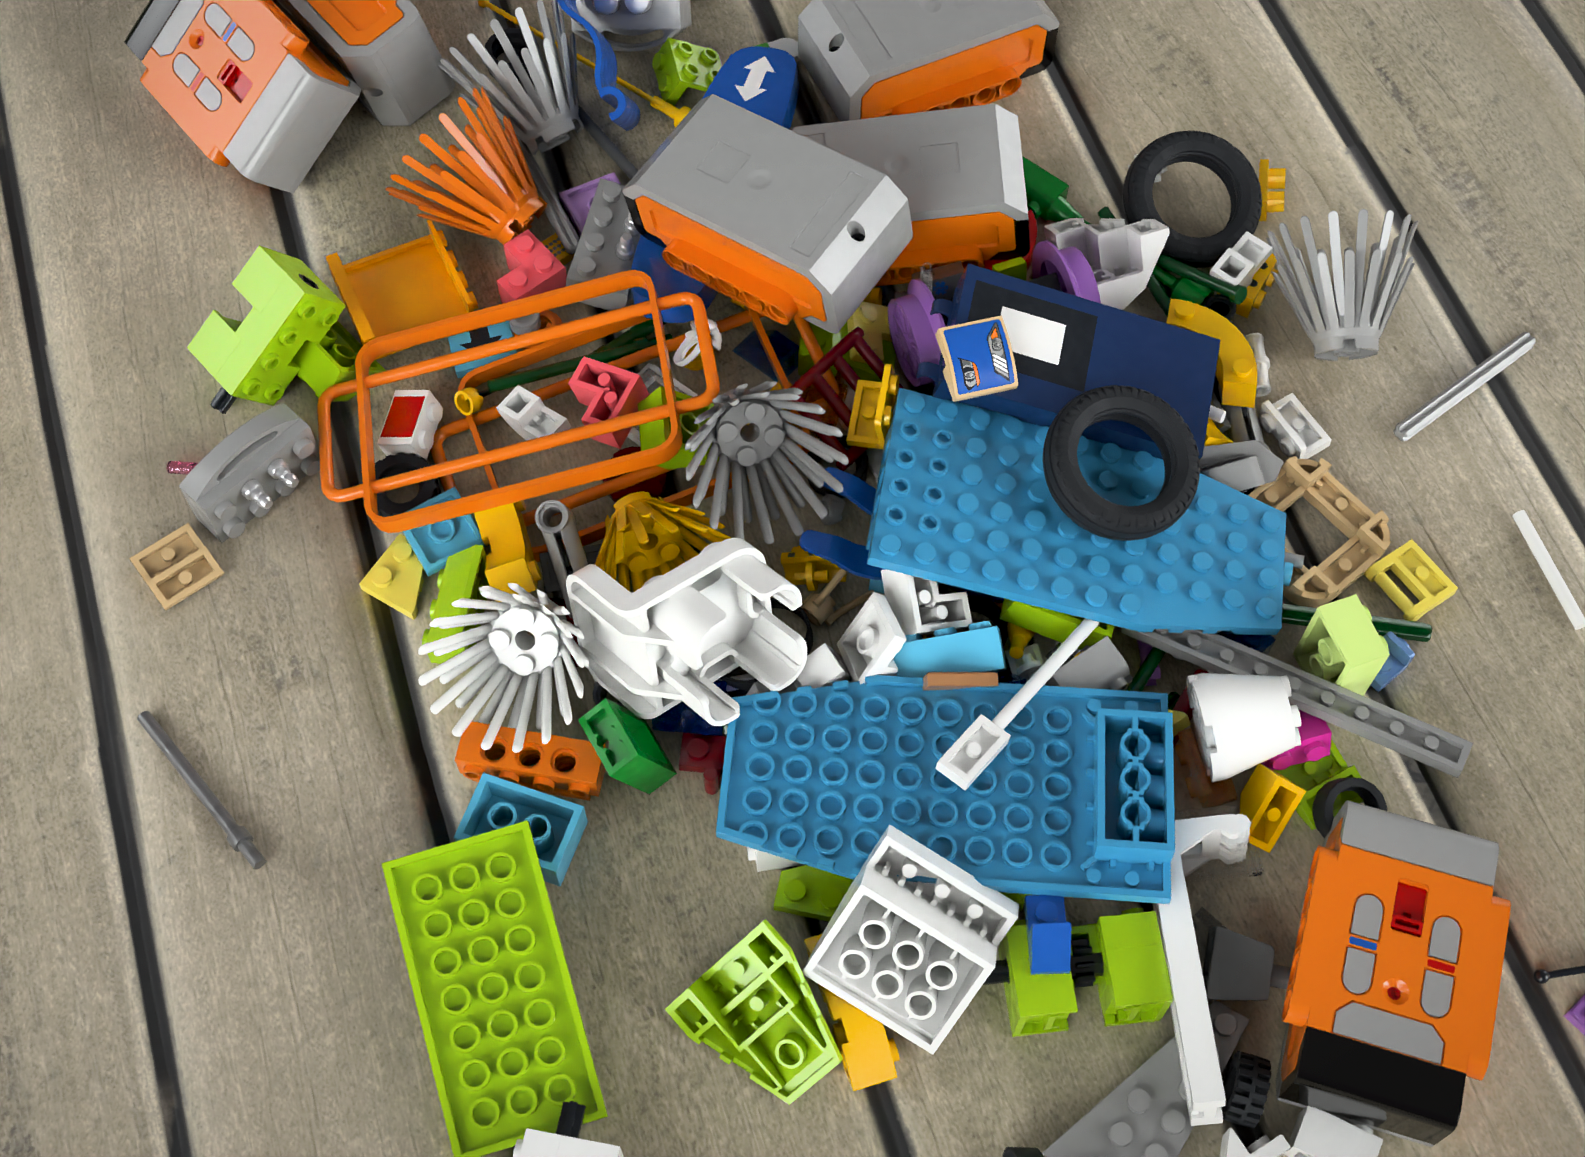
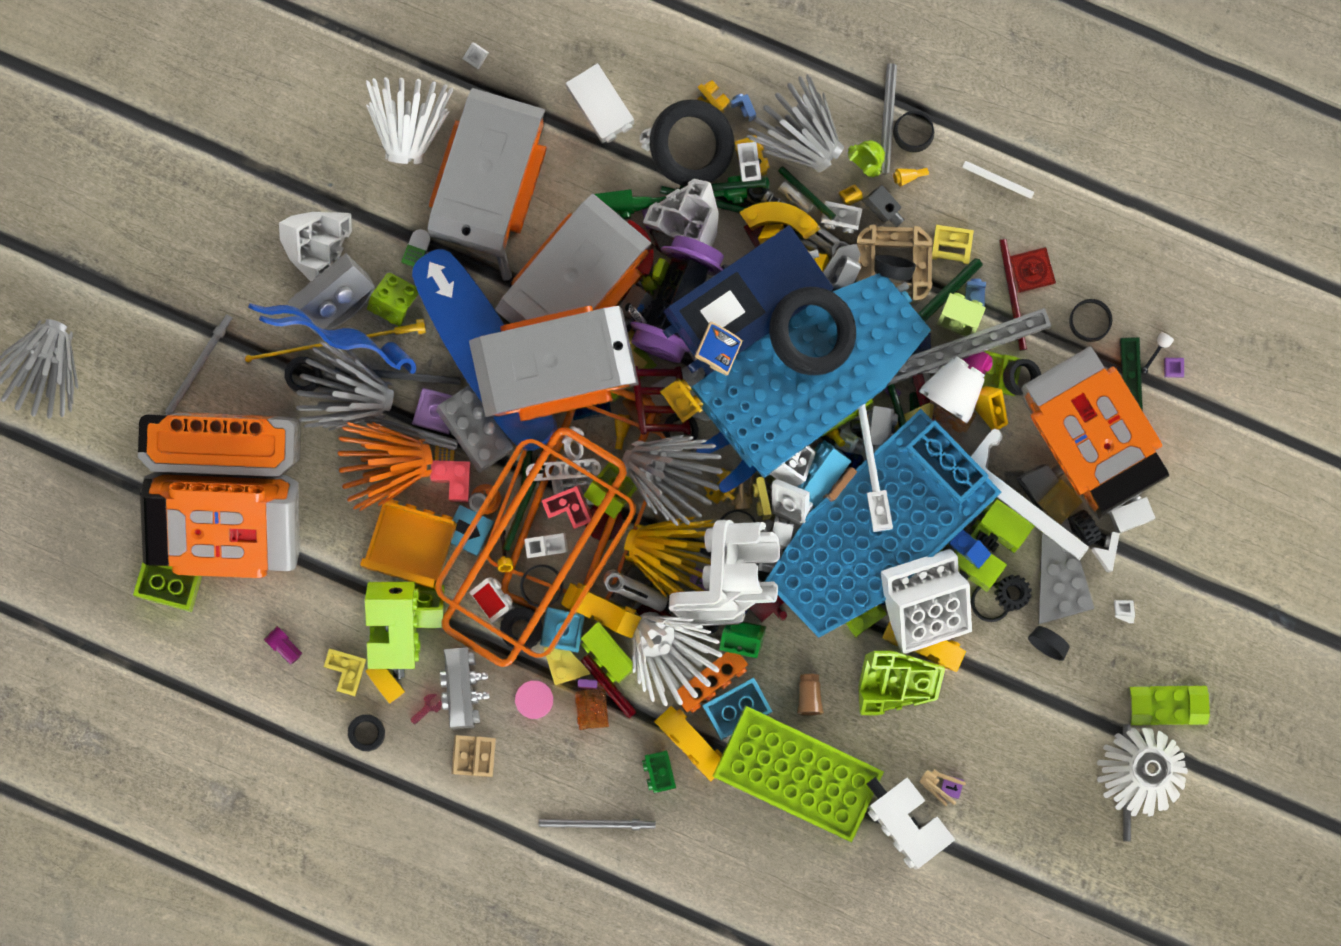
camera: 50 degrees left, 20 degrees up
(103, 406) = (366, 747): none -> black tyre
(126, 104) = (166, 588): none -> lime brick
(153, 257) = (280, 642): none -> magenta piece
(173, 355) = (350, 667): none -> light yellow plate
(194, 397) = (385, 683): none -> yellow slope
(318, 578) = (534, 699): none -> bright pink tile
(340, 804) = (659, 771): none -> green bracket
(364, 654) = (591, 709): none -> clear orange bracket
(394, 619) = (587, 683): none -> medium lavender tile
(411, 660) = (608, 686): none -> dark red axle
(419, 797) = (689, 741): none -> yellow brick
(468, 436) = (522, 585): none -> black tyre
(629, 913) = (809, 696): none -> medium nougat plant
(649, 366) = (563, 467): none -> white beam
(836, 623) = (763, 505): none -> light yellow plate
(984, 1083) = (979, 615): none -> black tyre
(1065, 1057) = (1005, 600): none -> black tyre
(1128, 93) = (600, 104): none -> white brick
(1244, 1016) = (1060, 502): none -> clear yellow piece
(1277, 368) = (807, 193): none -> dark green bar
(1291, 217) = (746, 108): none -> medium blue bracket
(1306, 529) = (894, 267): none -> black tyre
(1332, 422) = (851, 195): none -> yellow slope
(1364, 456) = (878, 200): none -> dark grey torso
(1397, 391) = (867, 156): none -> lime helmet
(1400, 763) = (1011, 287): none -> dark red bar
(1425, 458) = (904, 176): none -> yellow cone
(1480, 448) = (907, 147): none -> black tyre
(1494, 709) = (1032, 269): none -> clear red piece
(1530, 948) = (1131, 366): none -> dark green tile
(1543, 816) = (1100, 303): none -> black tyre

